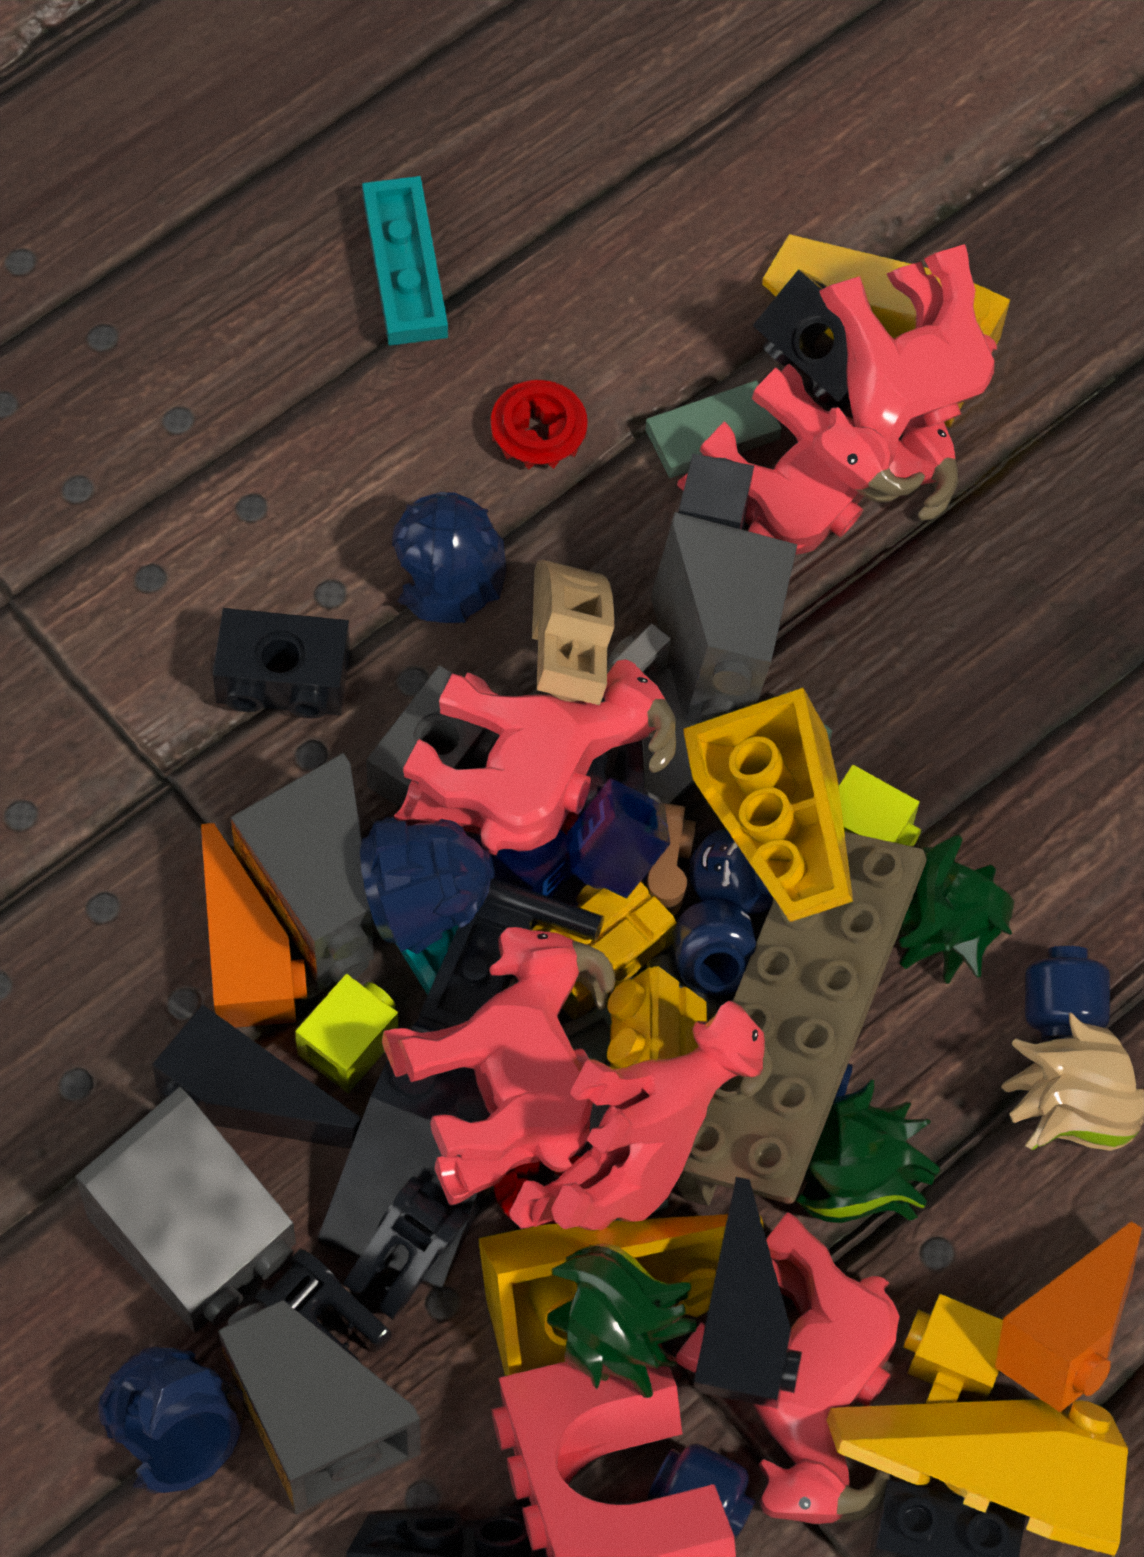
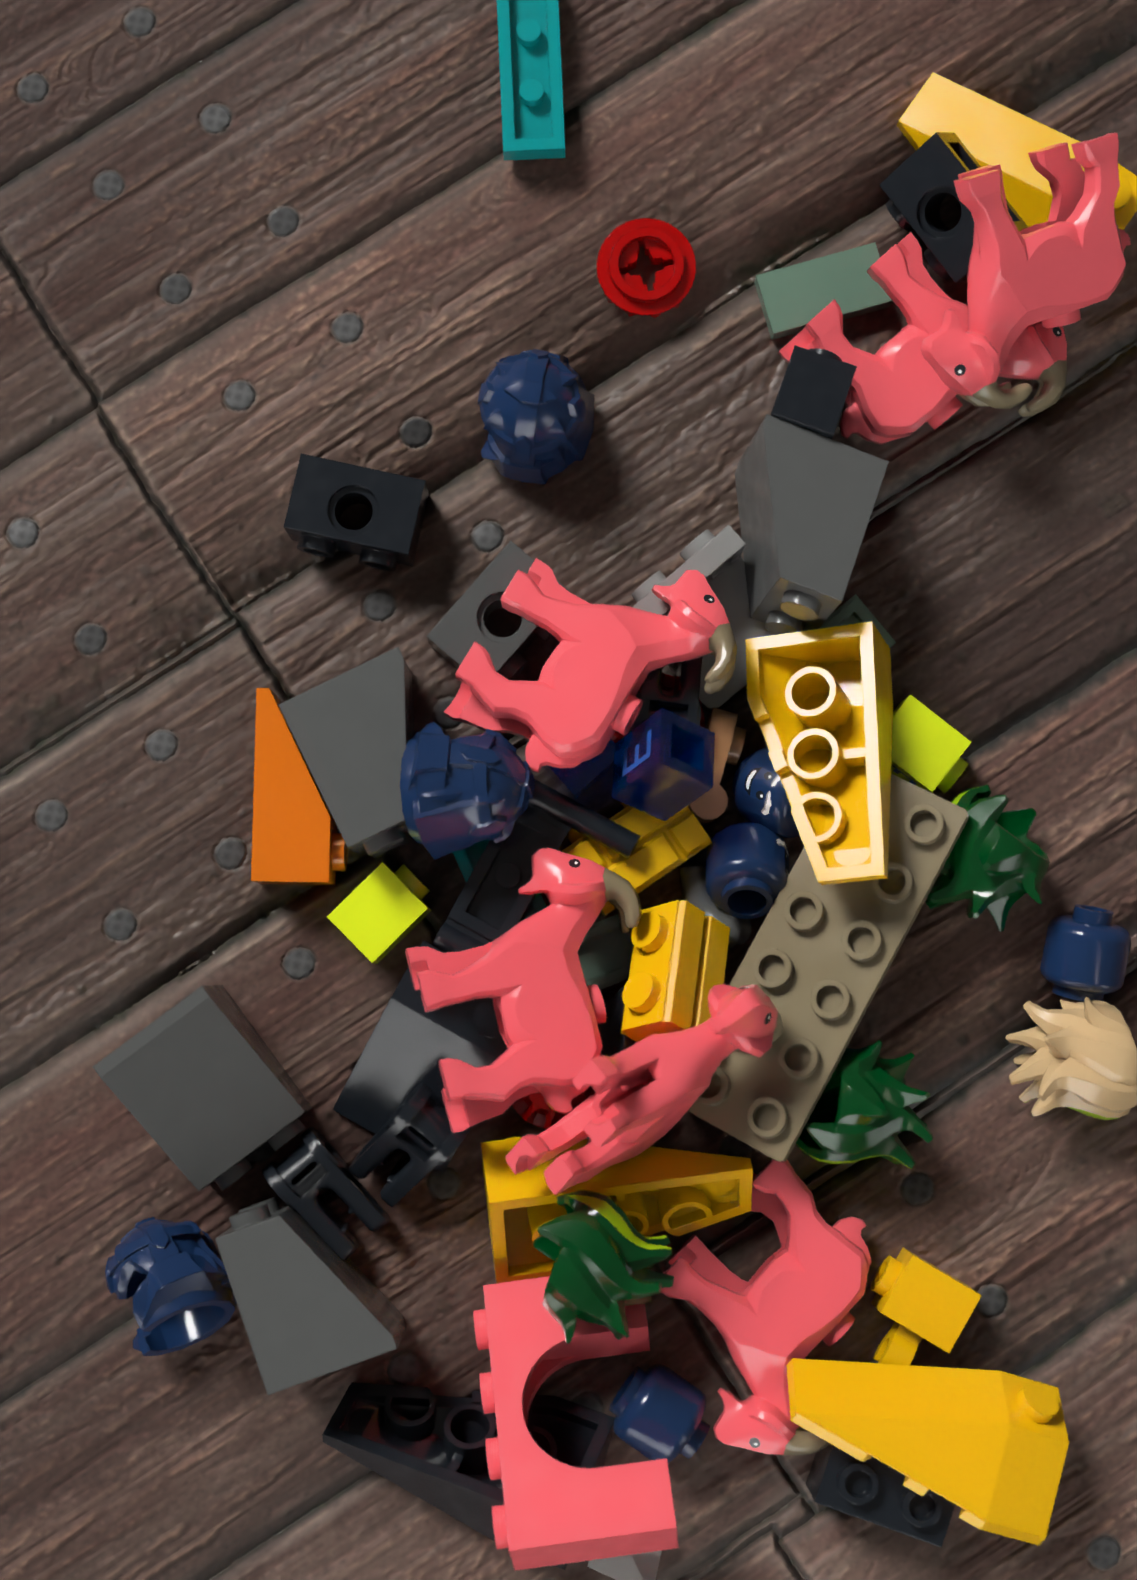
camera: 10 degrees right, 20 degrees up
(247, 1086) = (265, 950): black slope -> none
(572, 630) = (648, 525): tan slope -> none
(747, 1327) = (722, 1287): black slope -> none
(1065, 1332) = (1039, 1311): orange slope -> none

